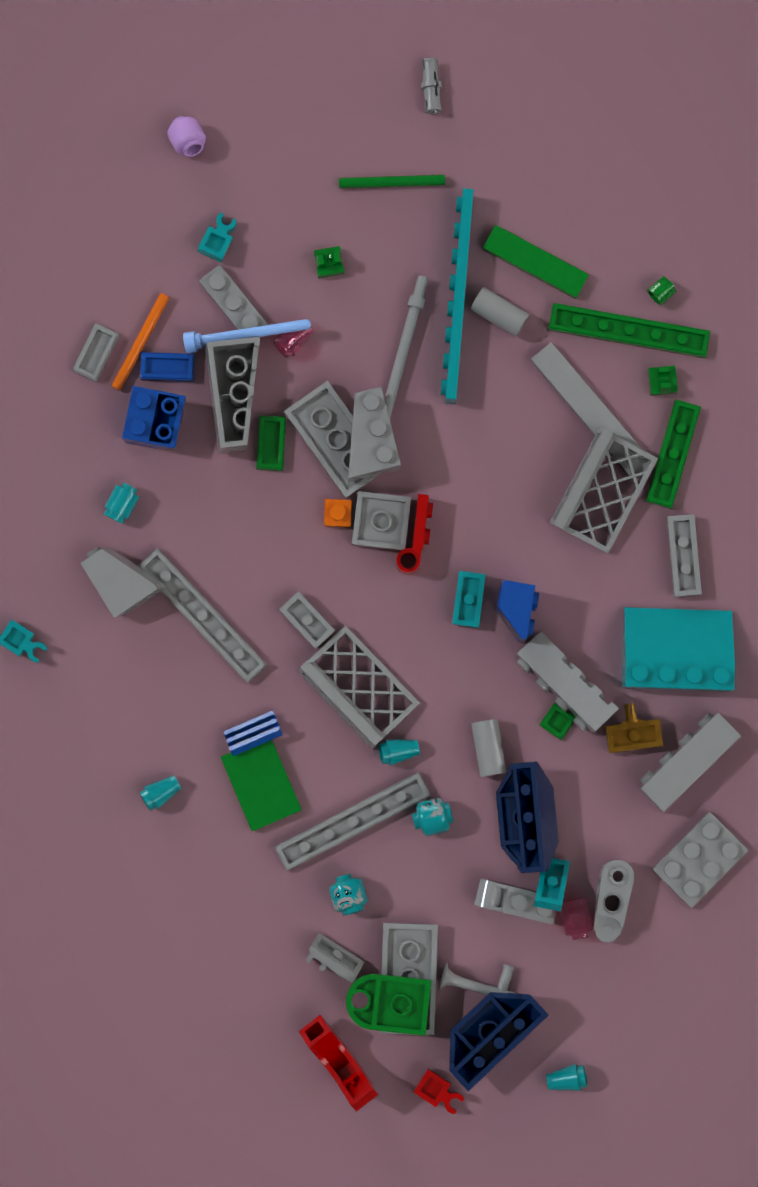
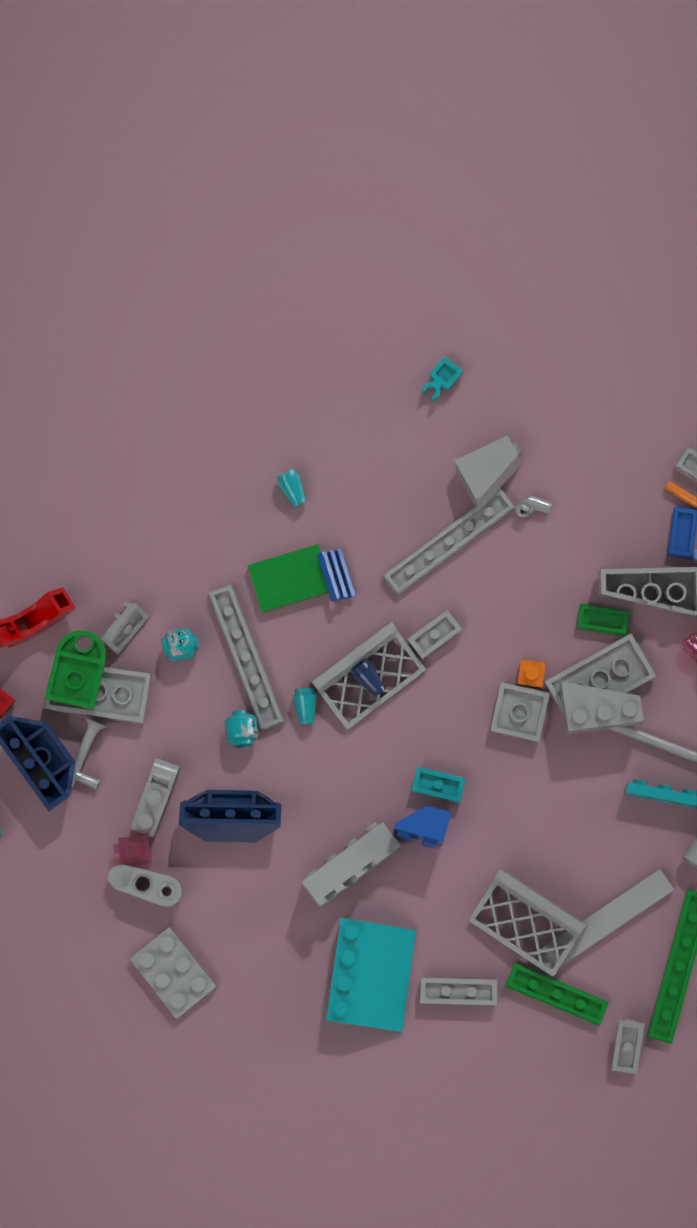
camera: 95 degrees right, 5 degrees down
(121, 502) = (559, 478): teal brick -> none
(153, 418) = (635, 513): blue slope -> none
(153, 531) = (532, 504): none -> light grey arm
(361, 687) = (367, 676): none -> dark blue cone
(421, 535) = (503, 746): red plate -> none
(488, 747) = (298, 786): light grey pin -> none
(552, 885) = (166, 830): teal plate -> none
(557, 722) = (315, 854): green tile -> none
(633, 733) = (297, 923): pearl gold plate -> none
(662, 380) = (628, 993): green tile -> none
(689, 762) = (264, 972): light grey brick -> none
(719, 375) = (627, 1046): none -> light grey plate

